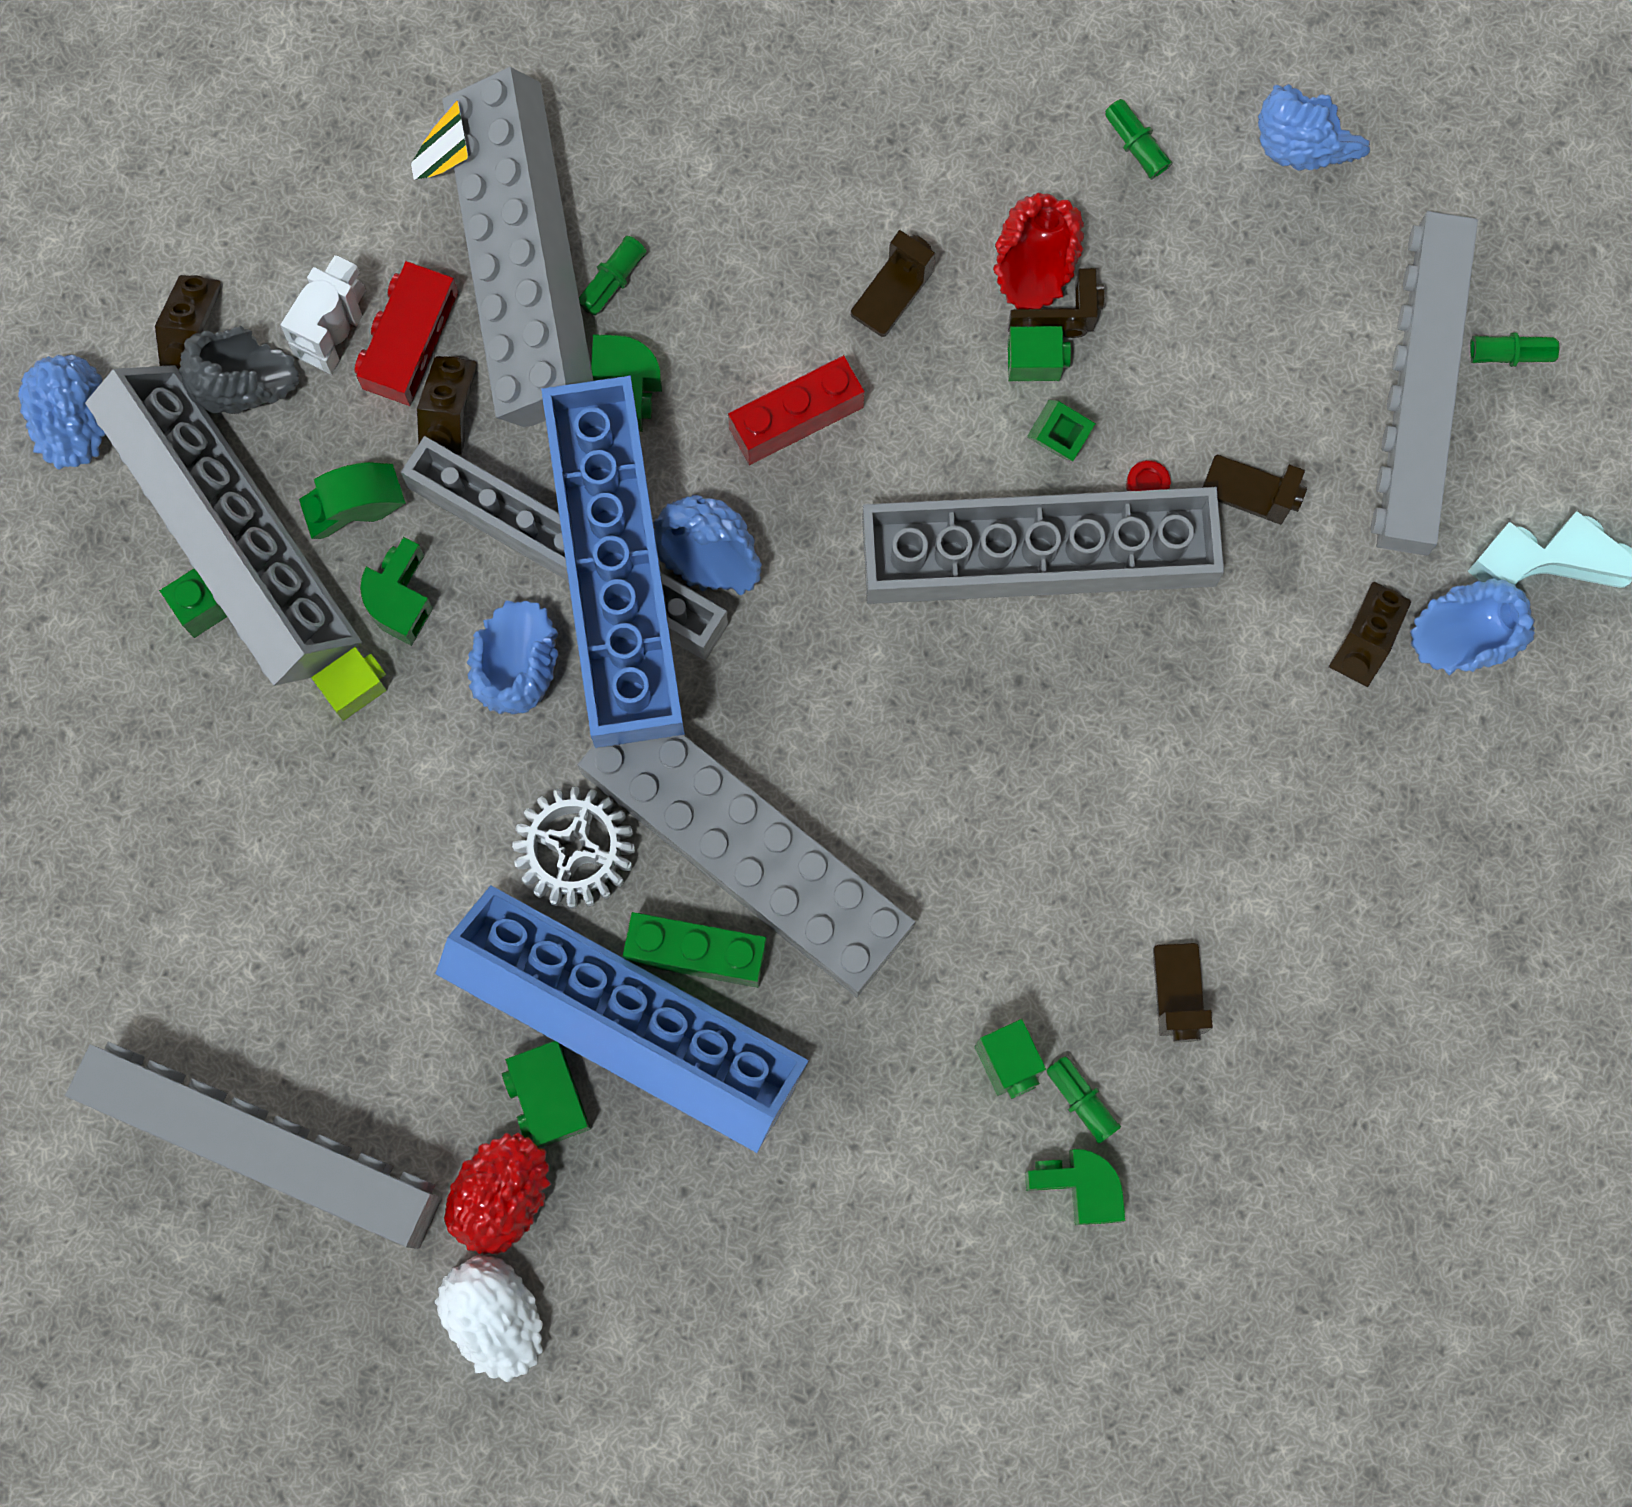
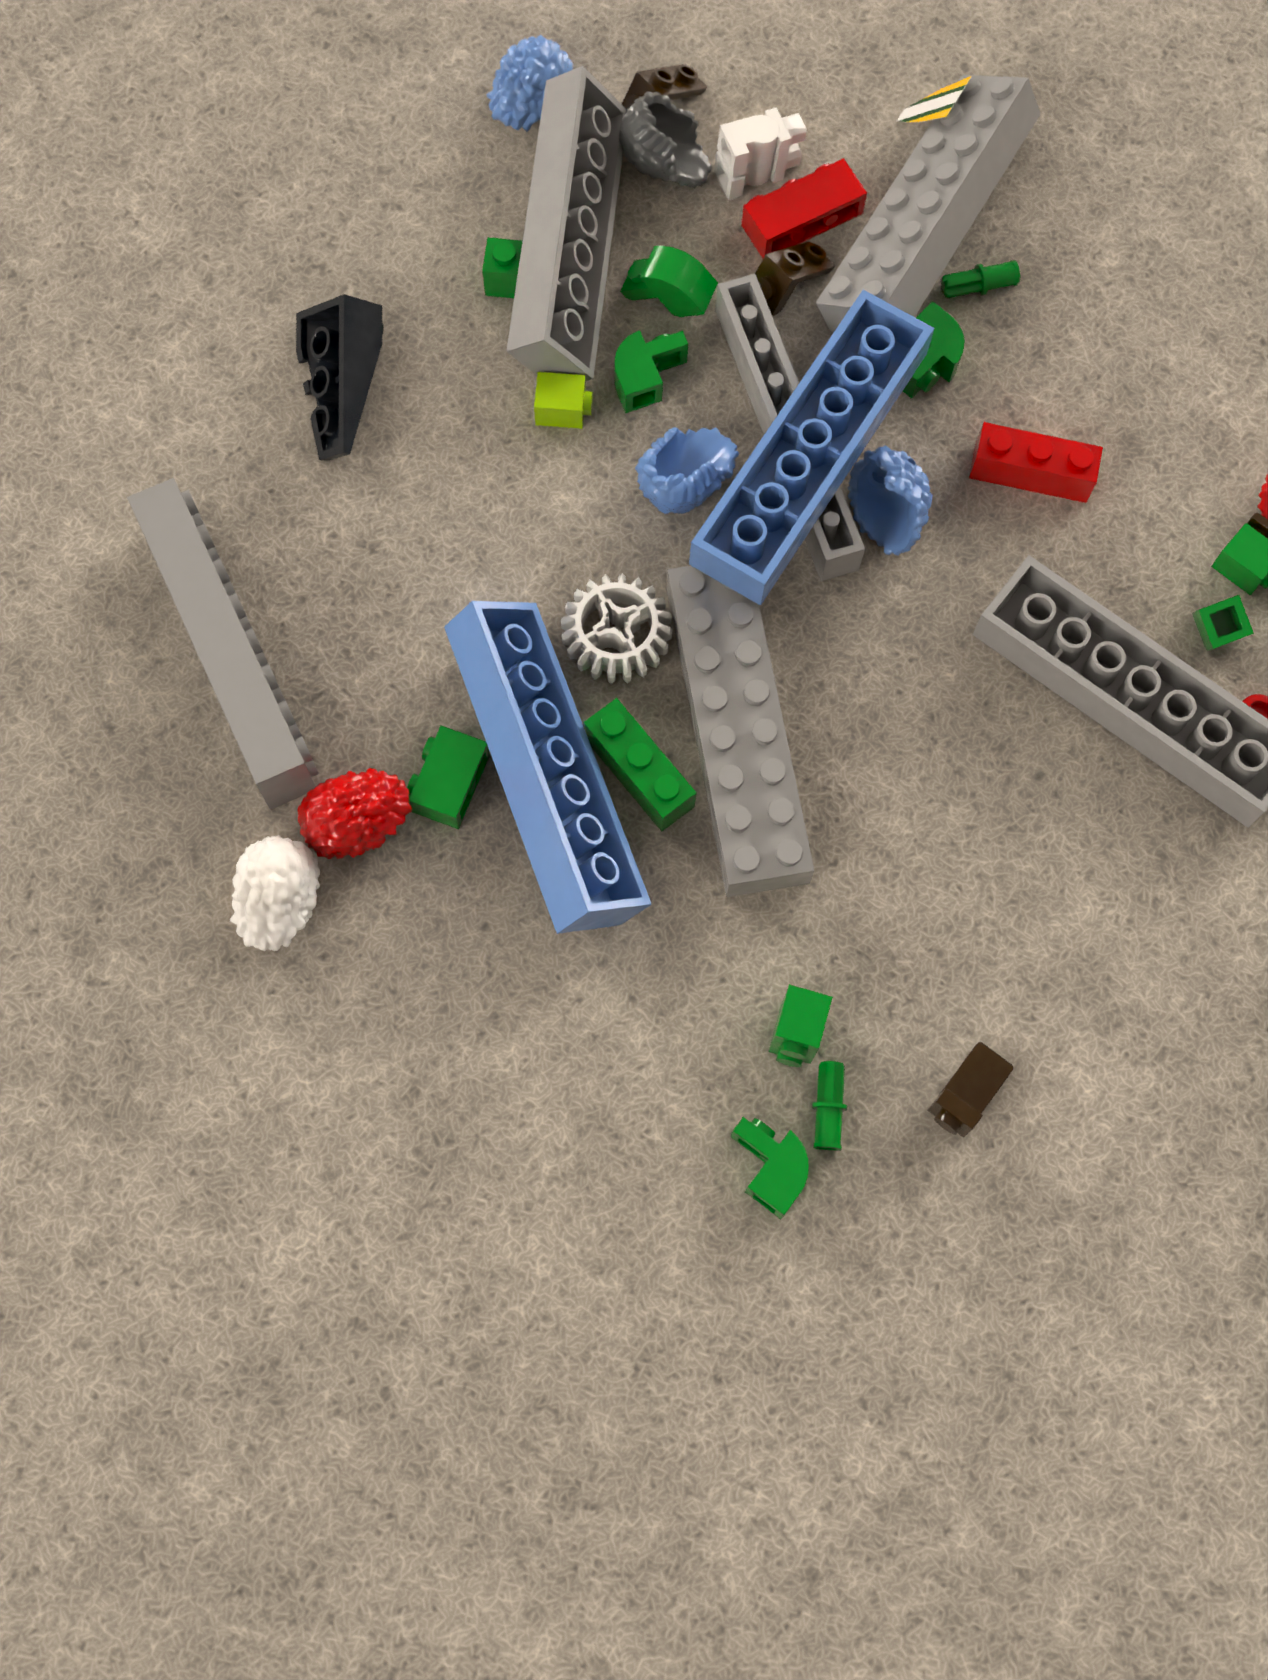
camera: 40 degrees right, 5 degrees down
(123, 802) = (342, 351): none -> black wedge
(896, 283) = (1185, 436): dark brown bracket -> none

